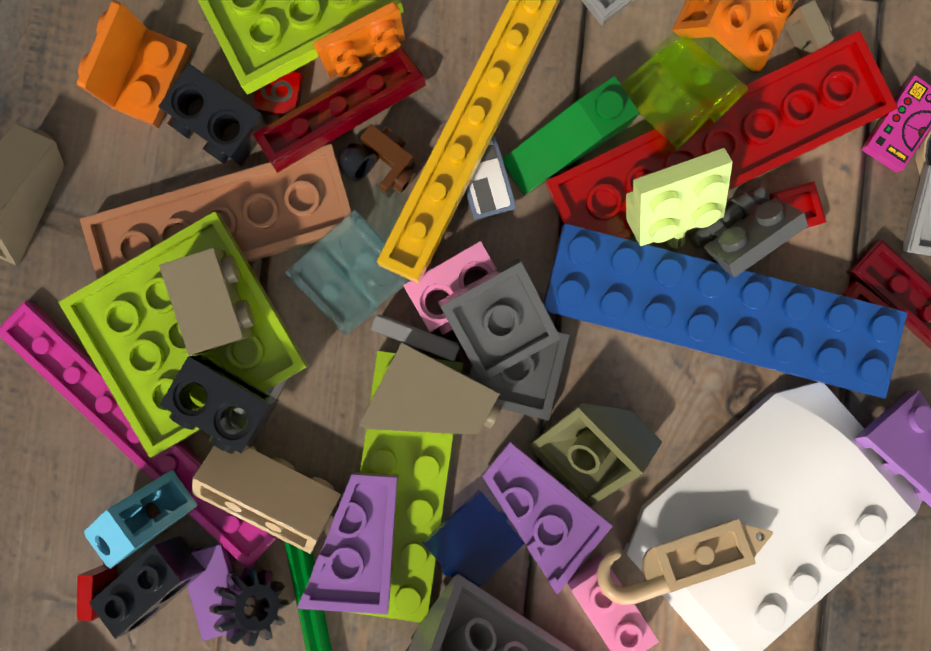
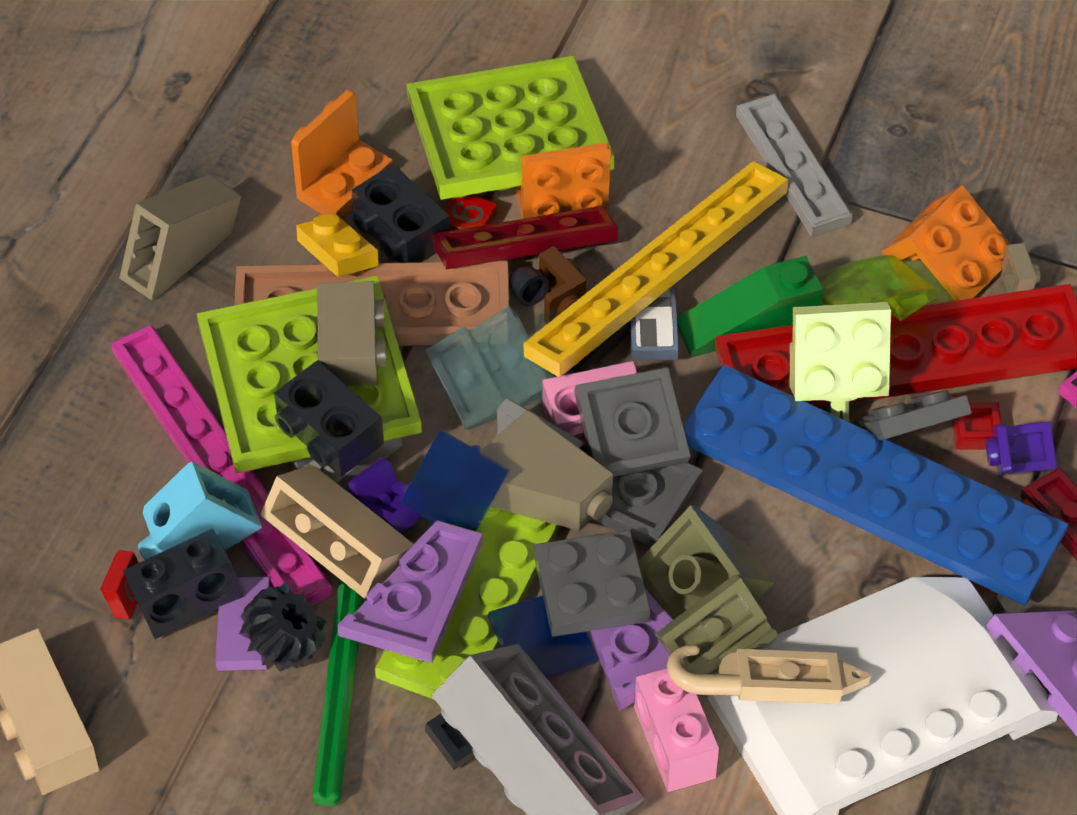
camera: 15 degrees right, 35 degrees down
(166, 169) = (337, 245): none -> yellow plate
(301, 441) = (382, 494): none -> dark purple bracket
(359, 440) = (455, 483): none -> clear blue piece
(504, 490) = (591, 583): none -> dark grey plate
(628, 520) = (718, 626): none -> olive plate
(847, 233) = (1021, 449): none -> dark purple bracket

